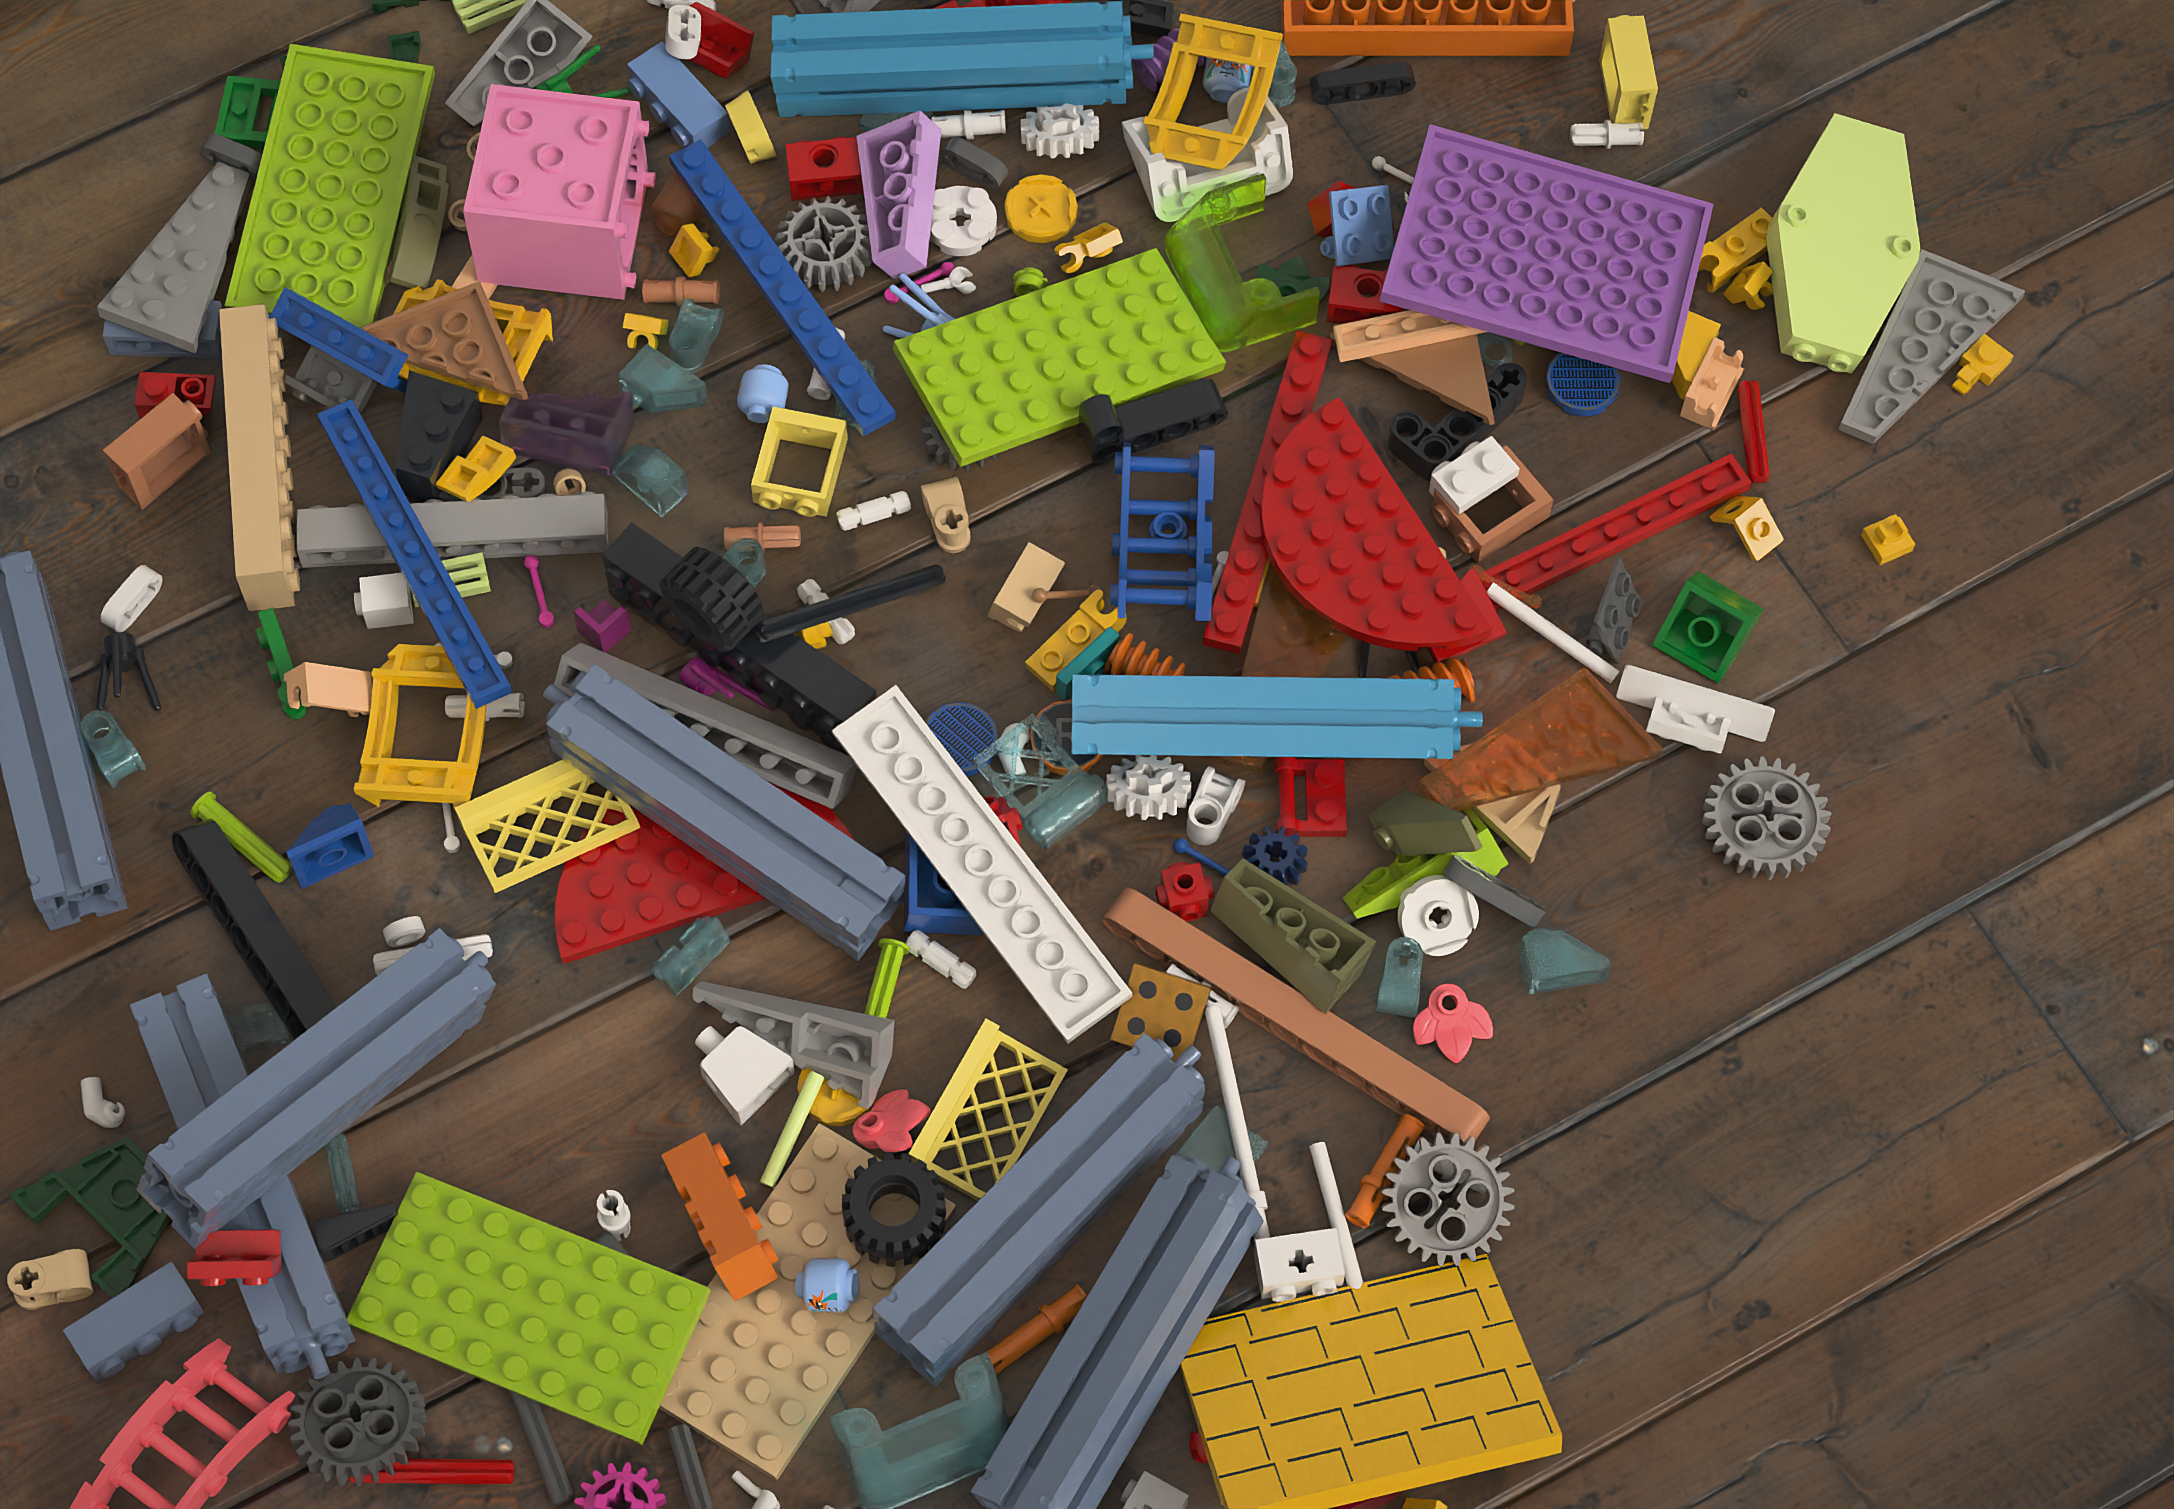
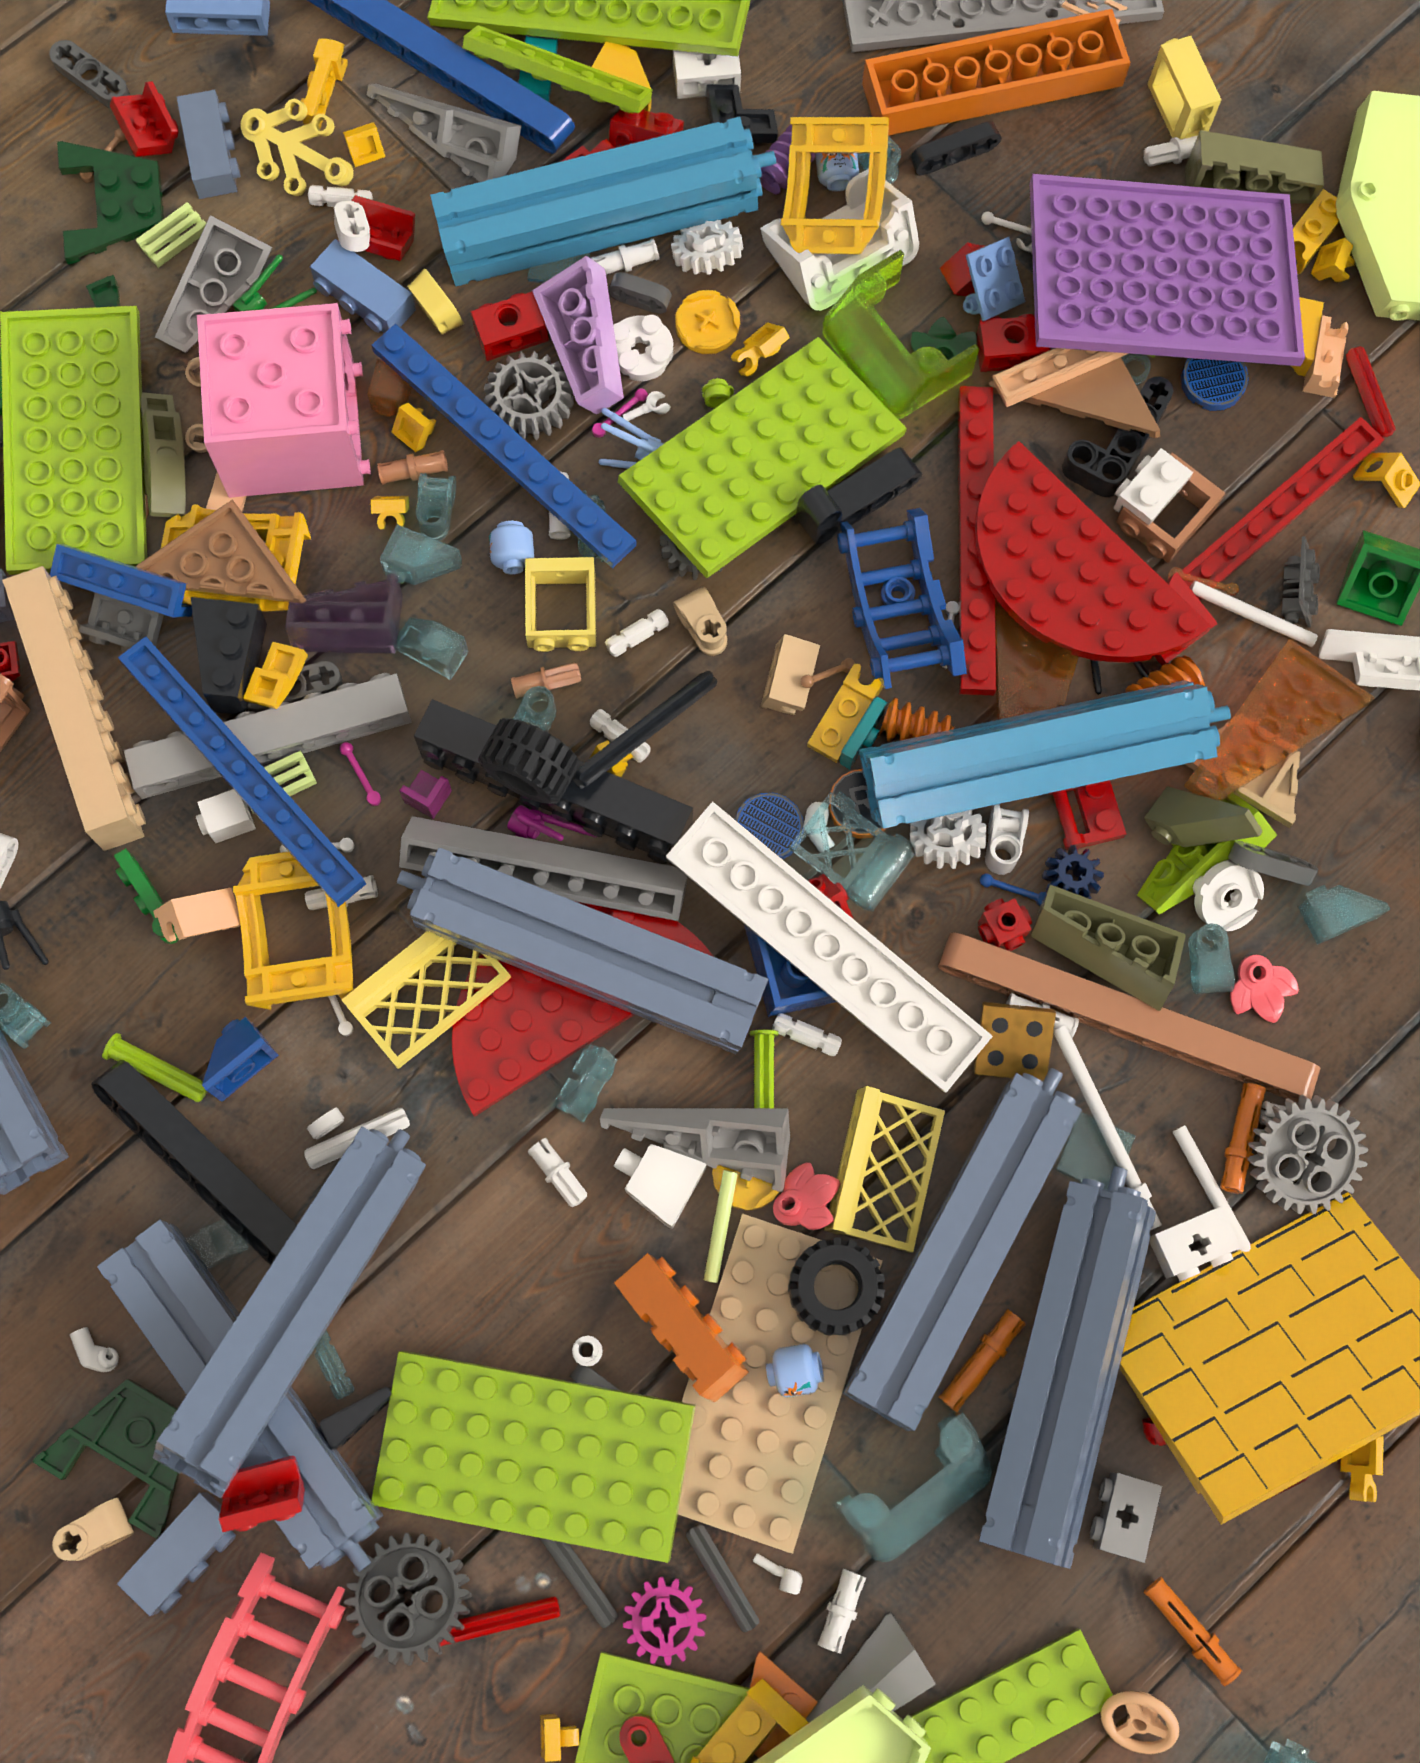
camera: 15 degrees left, 10 degrees up
(560, 484) = (364, 676): tan hinge -> none
(634, 1036) = (558, 1172): none -> white axle
(1687, 168) = (1254, 166): none -> olive wedge

